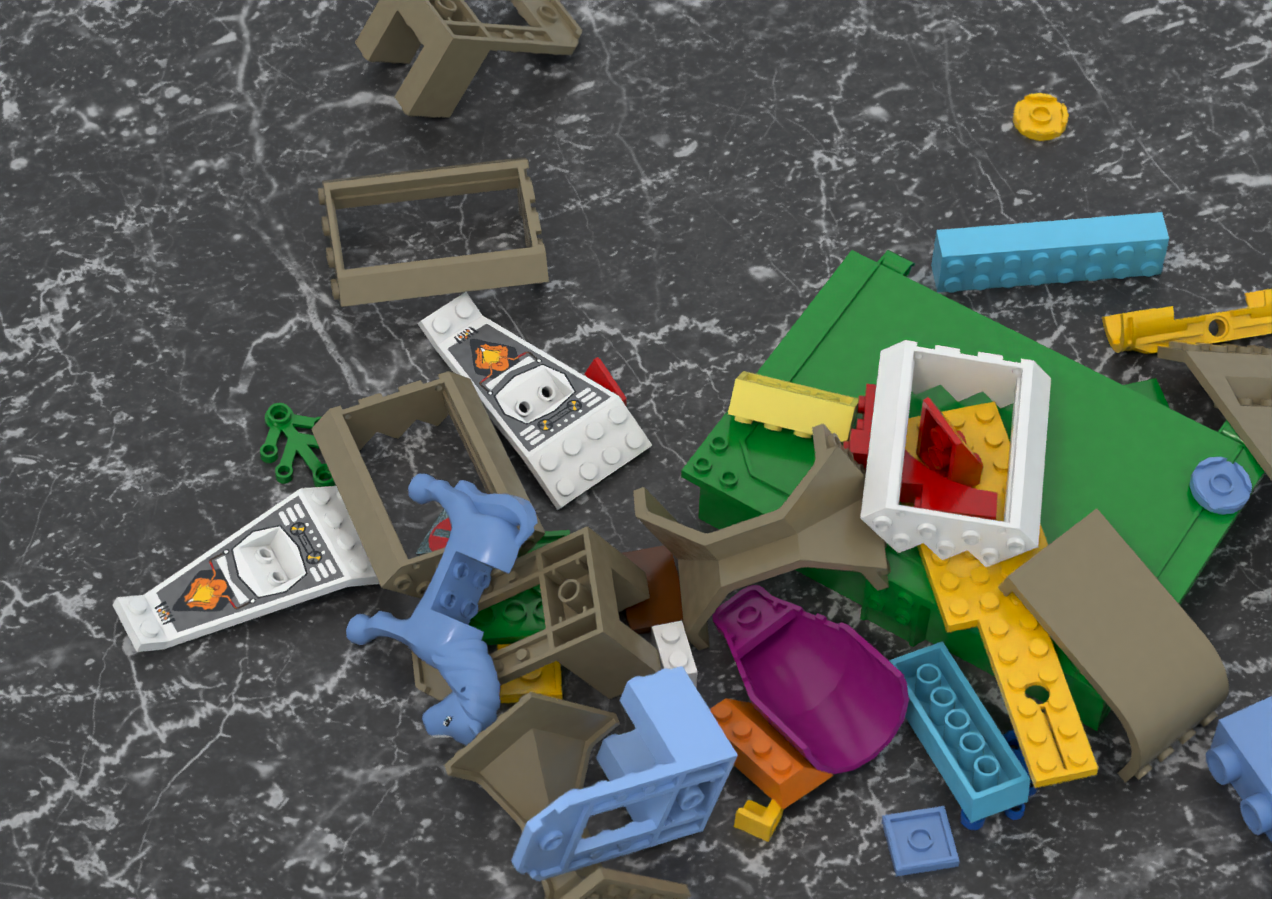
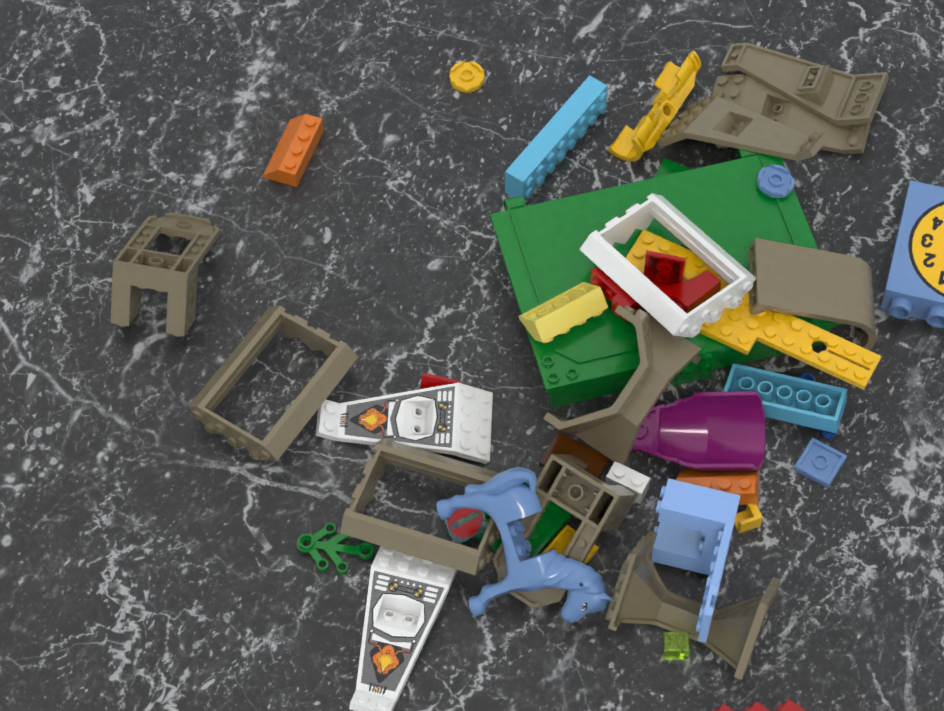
camera: 45 degrees left, 5 degrees up
(500, 865) = (676, 645): none -> clear neon green panel
(758, 41) = (295, 150): none -> orange slope

